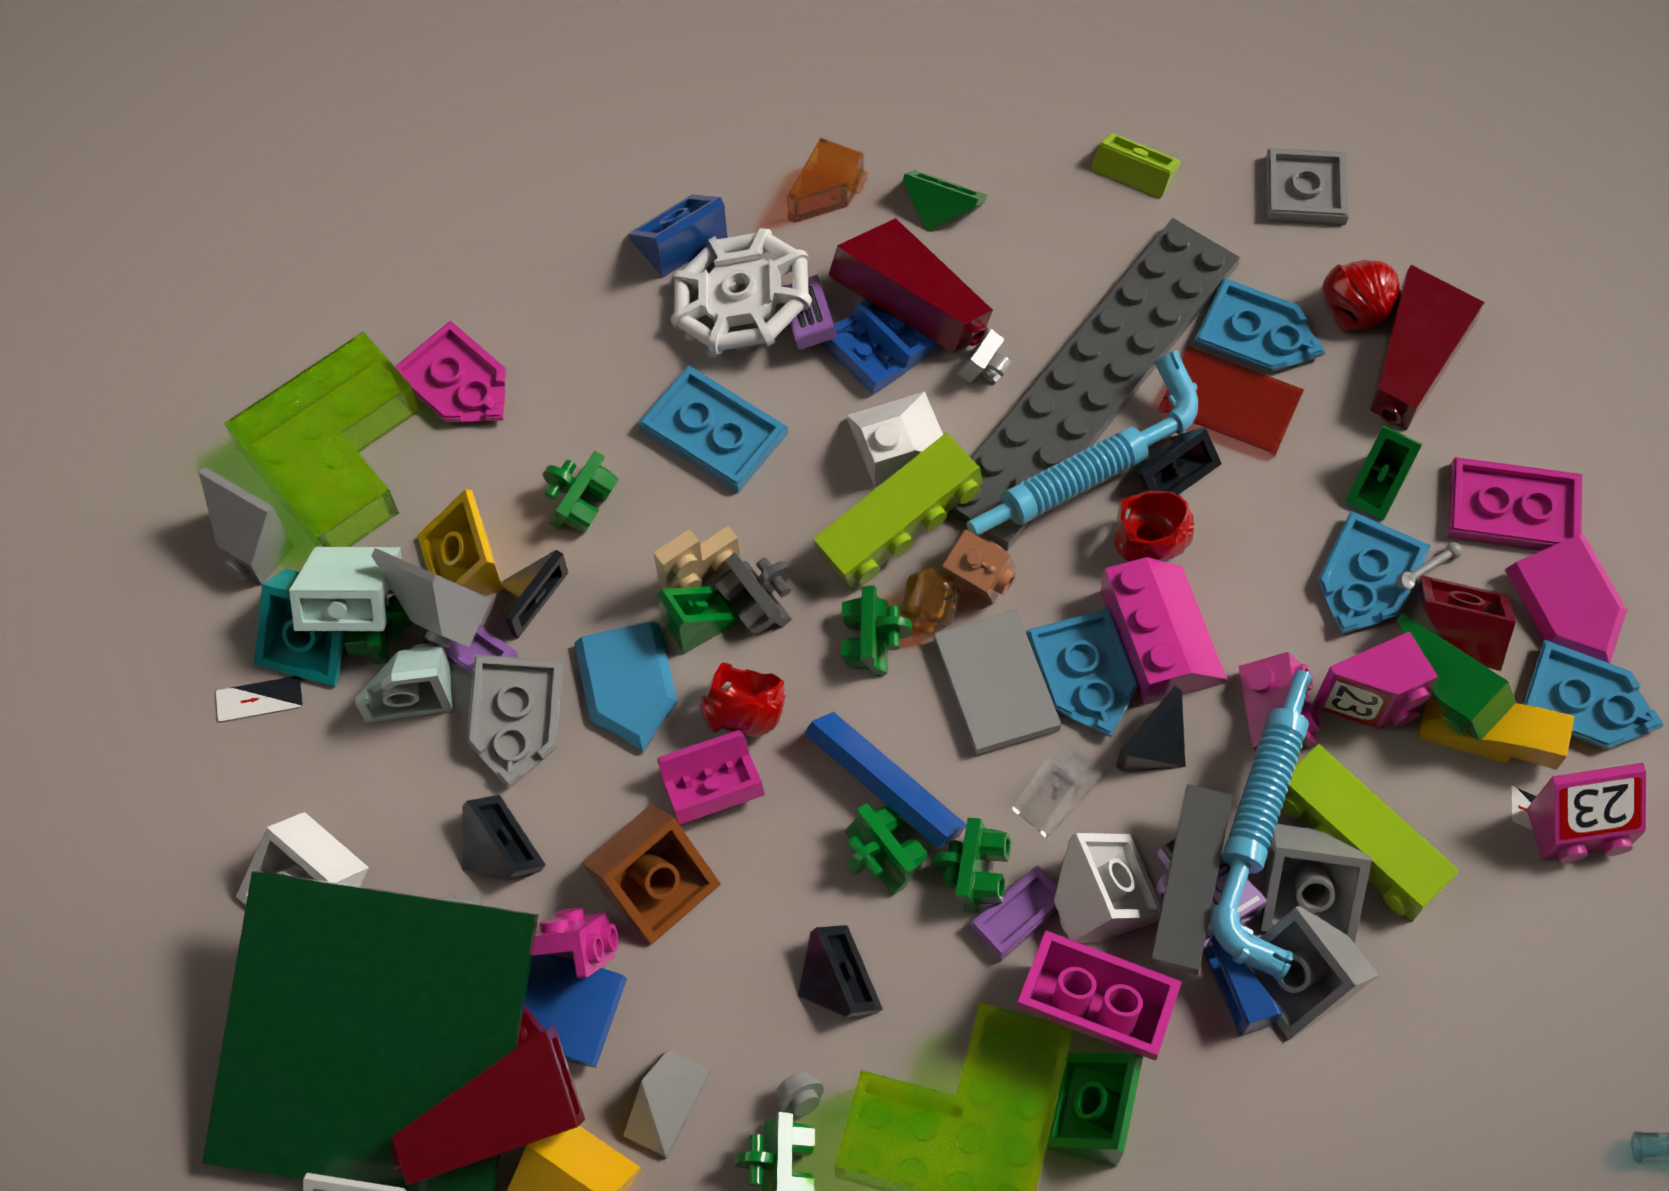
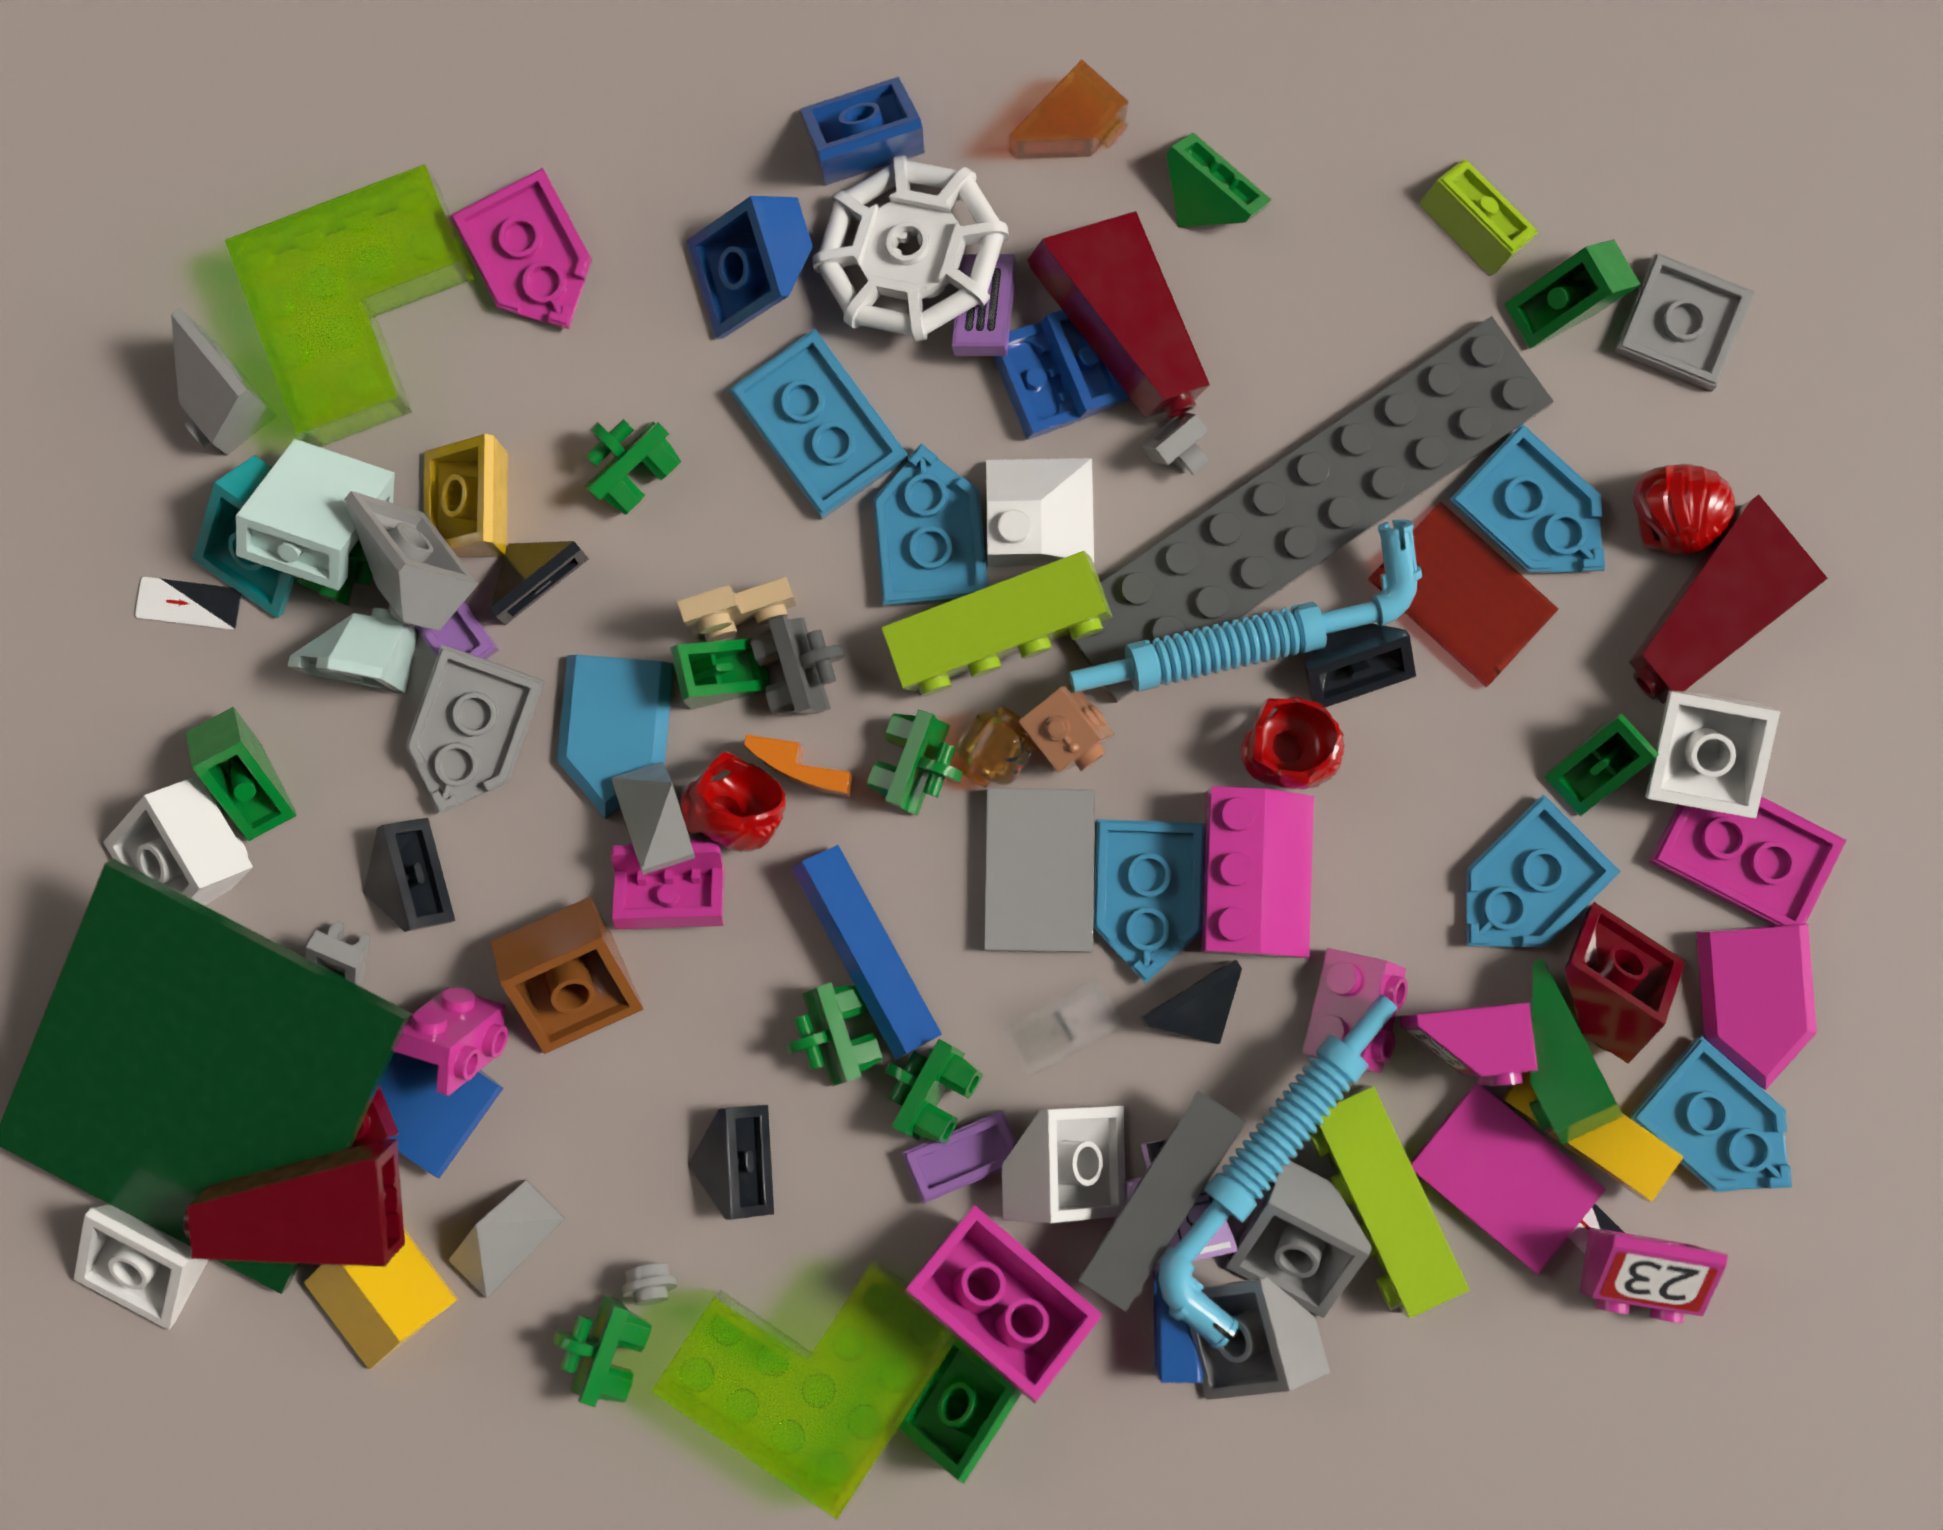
camera: 20 degrees right, 20 degrees up
(338, 804) = (239, 773): none -> green slope
(623, 331) = (749, 259): none -> blue slope
(685, 725) = (653, 817): none -> light grey slope
(796, 666) = (786, 759): none -> orange slope
(821, 474) = (929, 534): none -> dark azure tile
(1221, 186) = (1572, 292): none -> green slope
(1407, 580) = (1569, 911): light grey hinge -> none
(1449, 790) = (1506, 1178): none -> dark pink tile
(1460, 435) = (1713, 753): none -> white slope

